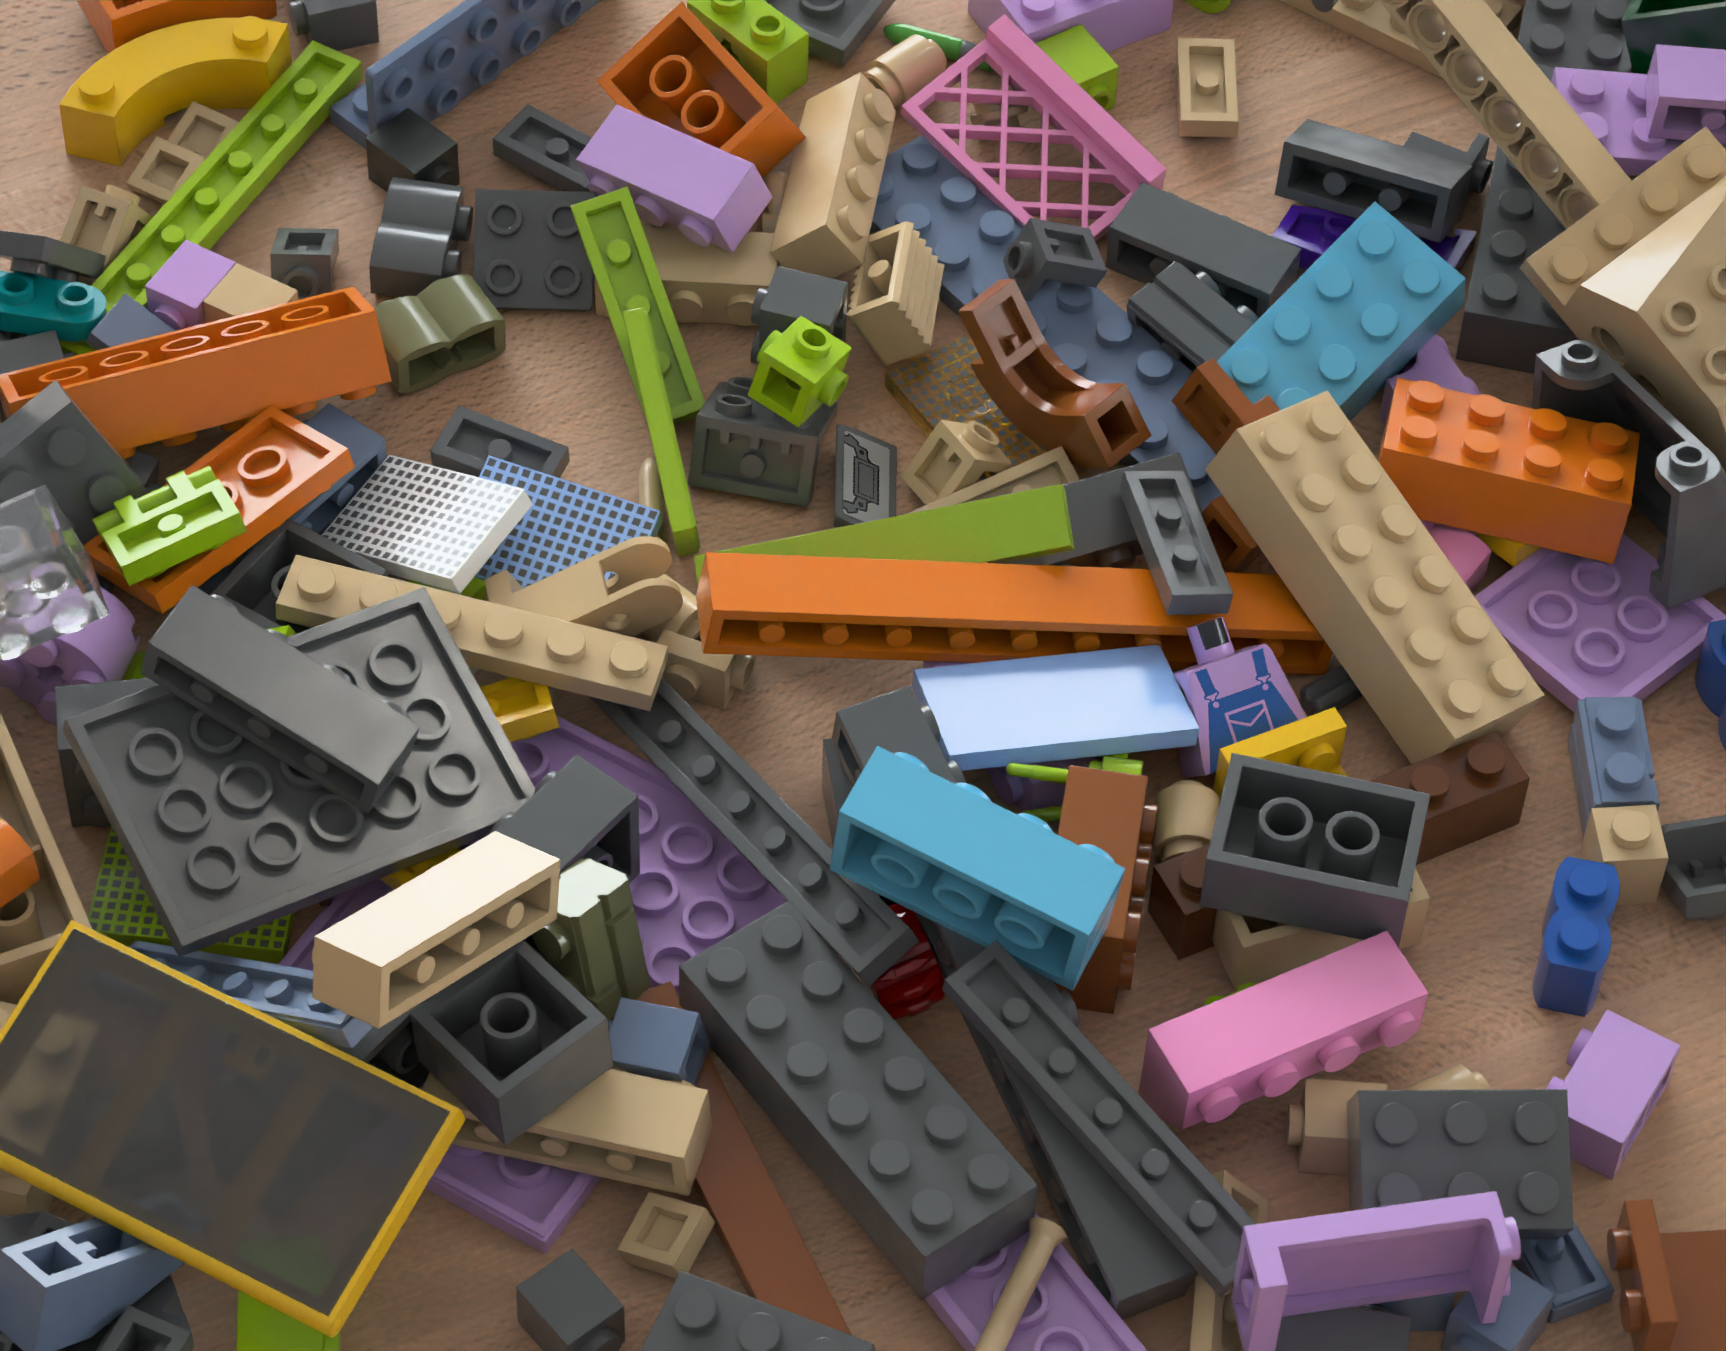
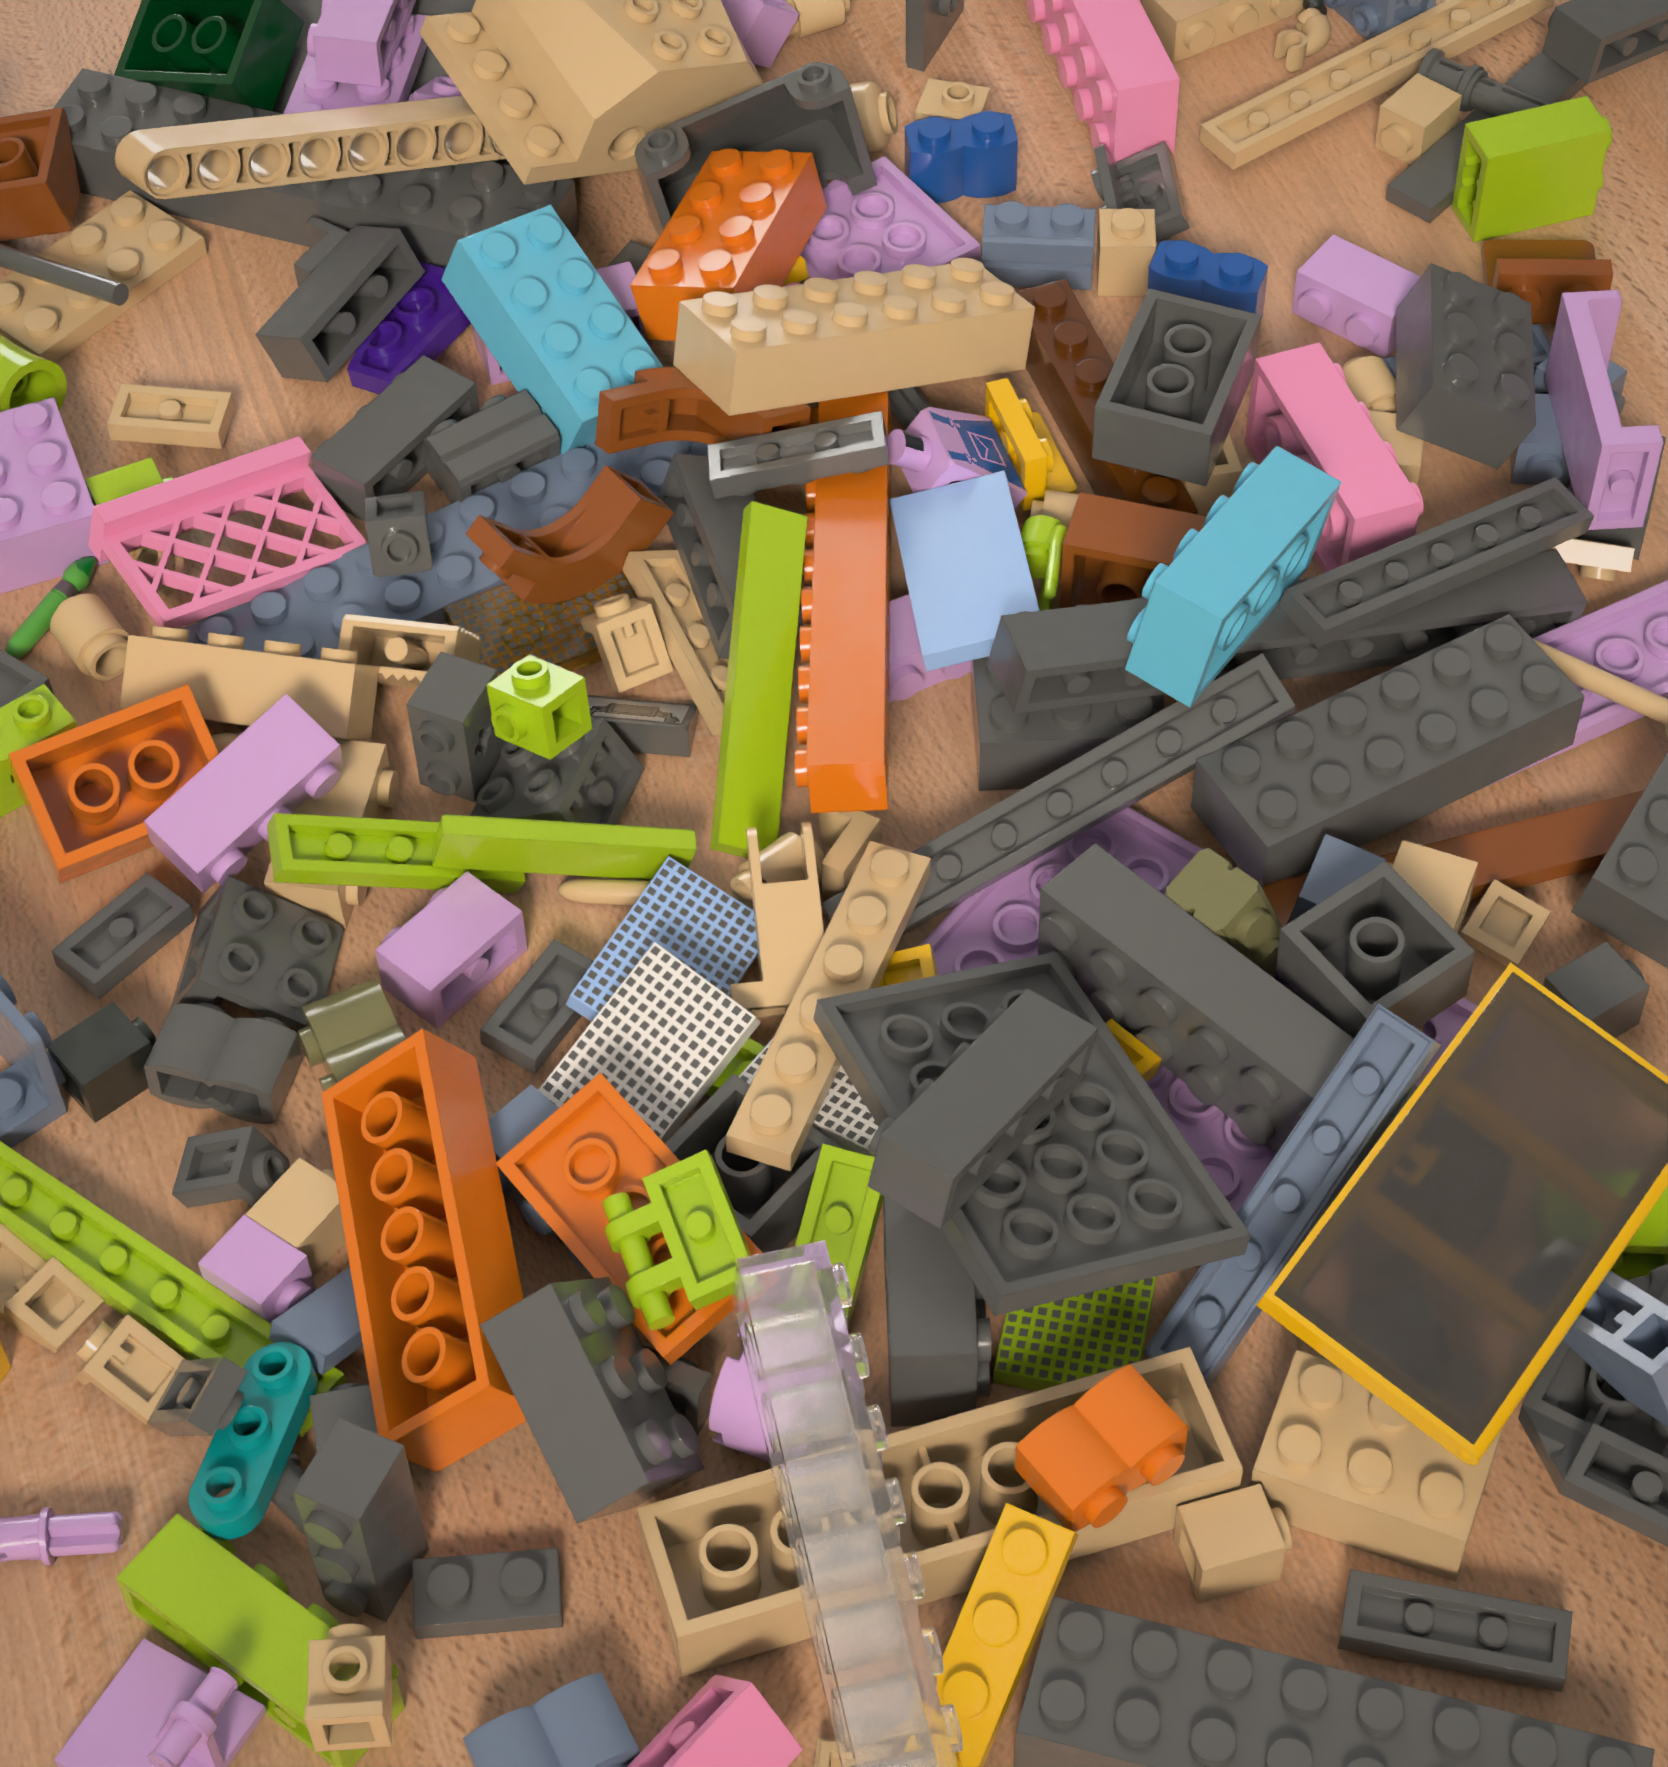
camera: 80 degrees left, 0 degrees up
(435, 929) = (1321, 956): tan brick -> none
(556, 379) = (451, 949): none -> lavender brick

